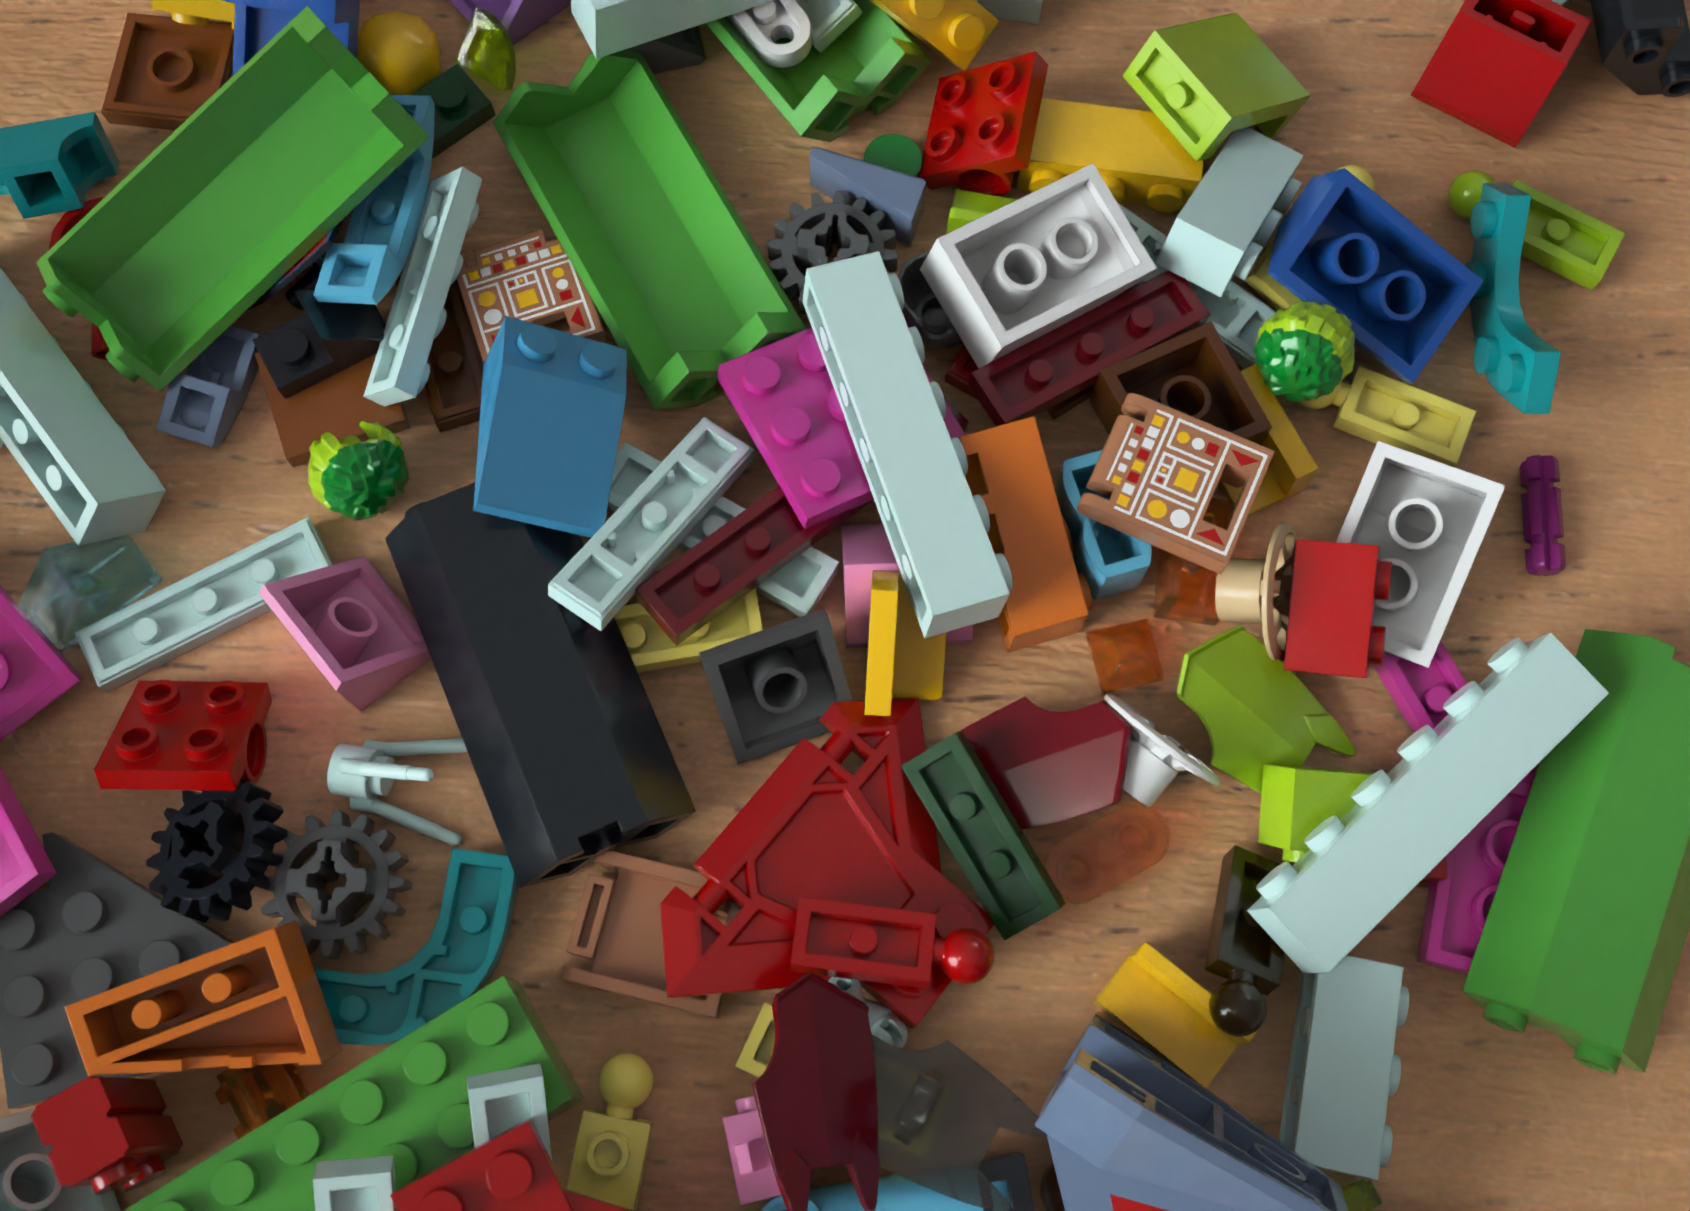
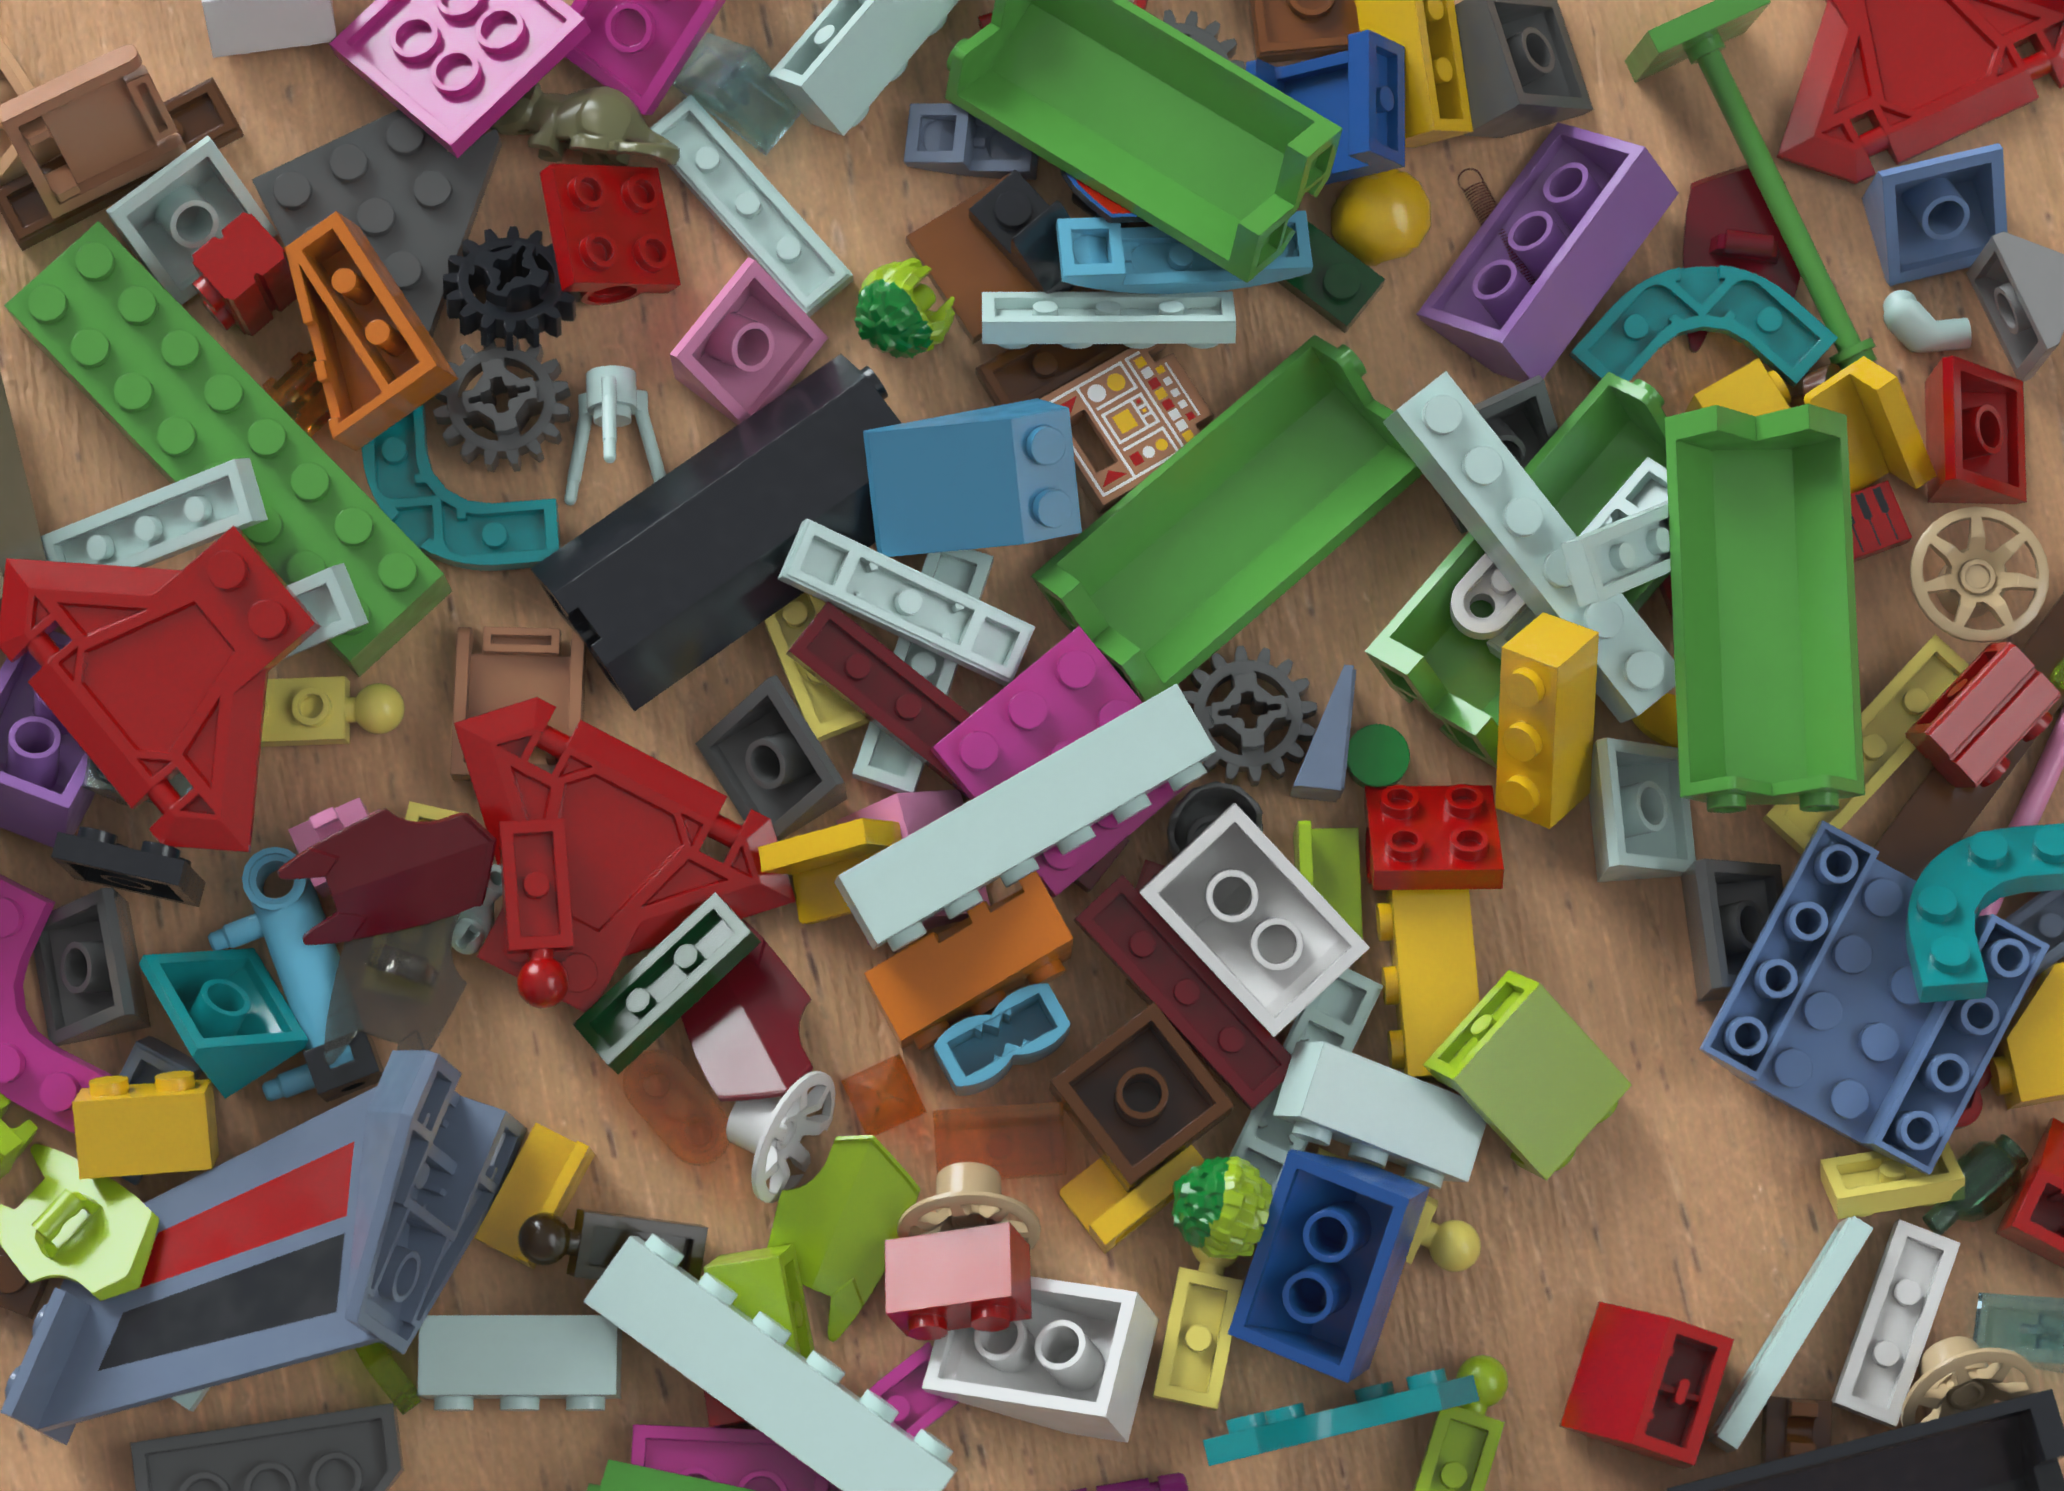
camera: 75 degrees right, 5 degrees up
(65, 738) = (589, 121): none -> olive animal
(488, 51) = (1406, 308): clear neon green tile -> none
(1162, 477) = (1044, 1081): nougat container -> none

